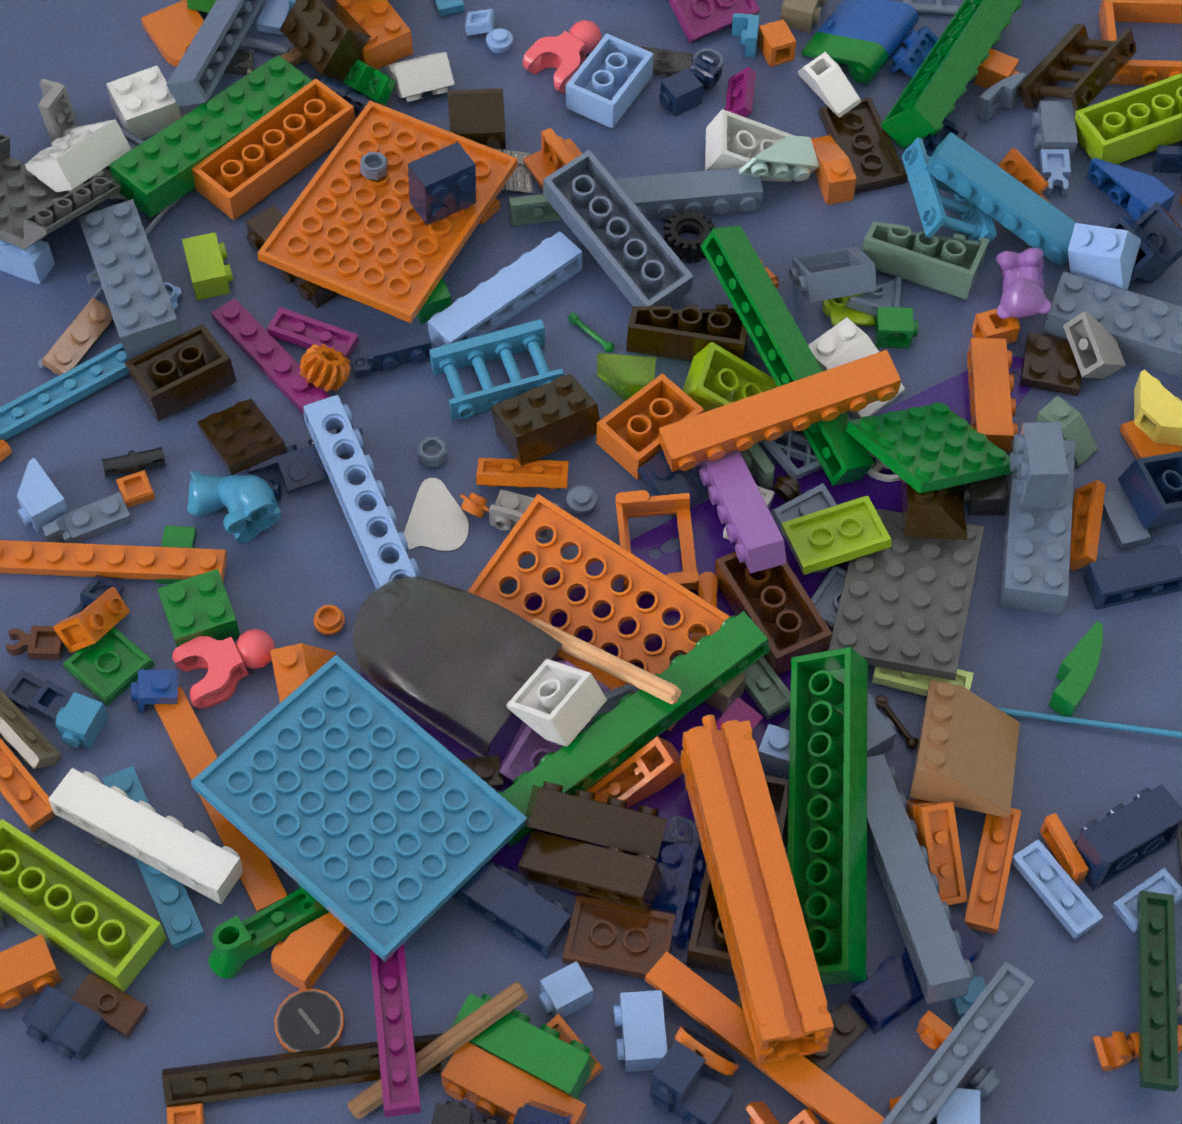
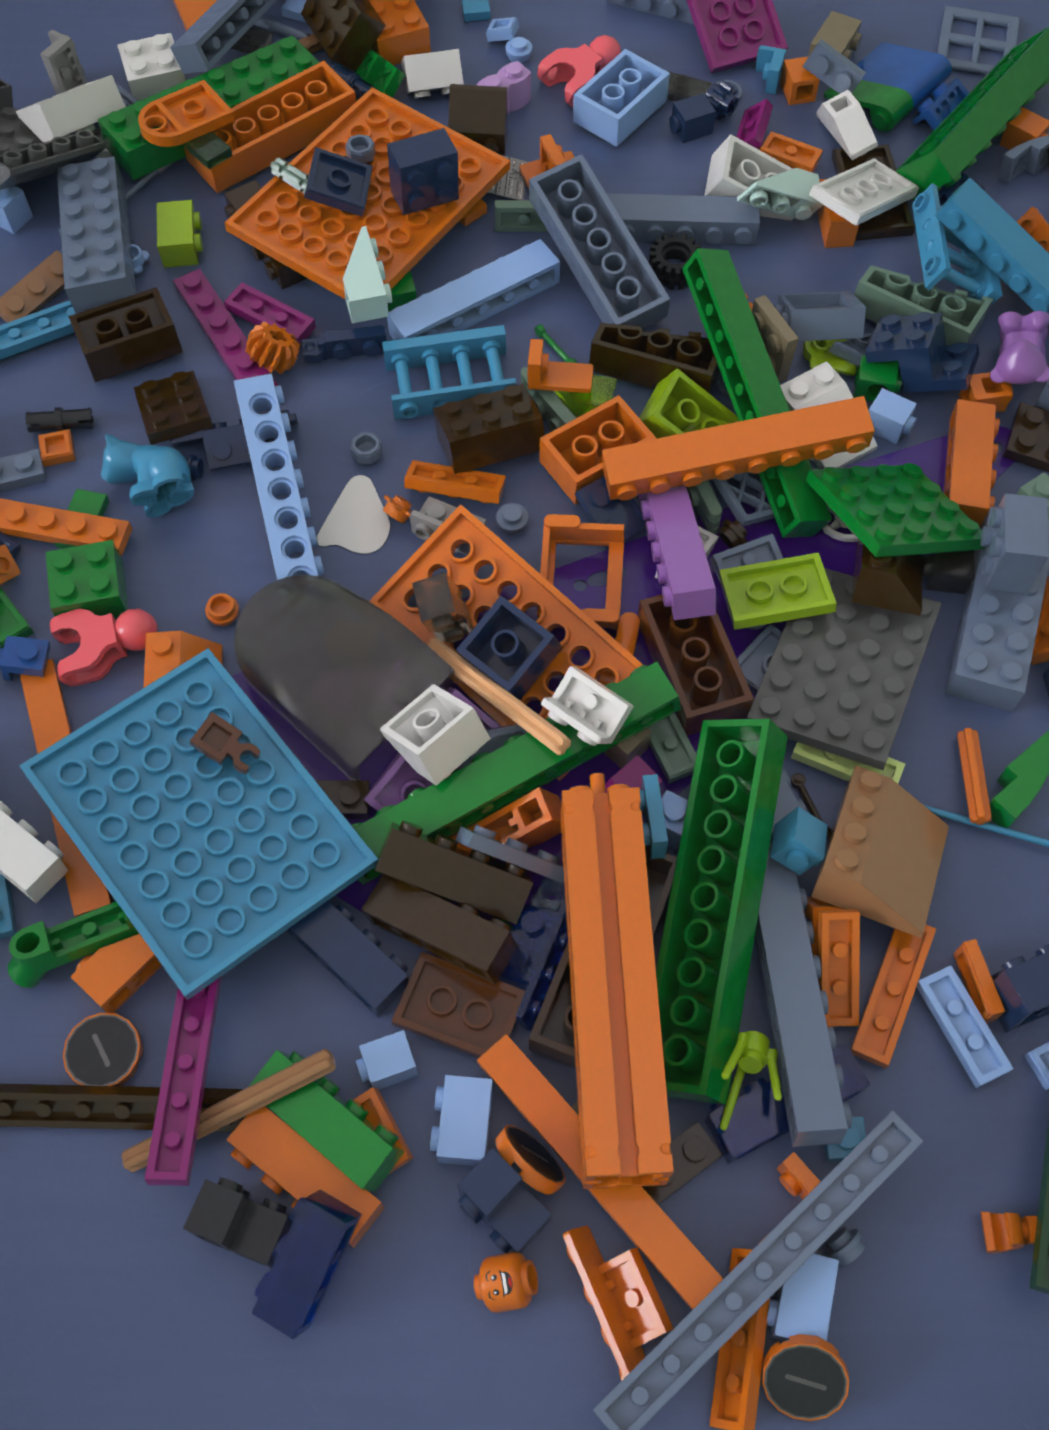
camera: 10 degrees right, 5 degrees up
(196, 152) = (184, 115): none -> orange tile
(217, 176) = (209, 149): none -> tile
(317, 201) = (290, 174): none -> sand green axle
(360, 201) = (338, 182): none -> dark blue tile
(368, 733) = (221, 740): none -> reddish brown plate
(408, 303) = (363, 282): none -> light aqua slope
(500, 74) = (518, 83): none -> lavender brick
(541, 590) = (442, 607): none -> clear smoke brick
(601, 362) = (556, 375): none -> orange bracket
(604, 395) = (548, 404): none -> sand green hinge
(608, 616) = (510, 647): none -> dark blue brick
(643, 795) = (511, 852): none -> sand blue plate
(691, 659) = (587, 707): none -> white bracket
(764, 746) = (654, 827): none -> dark azure plate
(780, 116) = (792, 152): none -> orange plate
(797, 298) = (776, 335): none -> dark tan plate
(808, 31) = (833, 68): none -> sand blue plate
(855, 149) = (864, 191): none -> white tile
(881, 936) = (752, 1055): none -> lime plant
(892, 750) = (799, 841): none -> dark azure brick
(913, 360) = (892, 416): none -> light blue brick
(932, 298) = (922, 352): none -> dark blue bracket
(1034, 675) = (974, 776): none -> orange axle

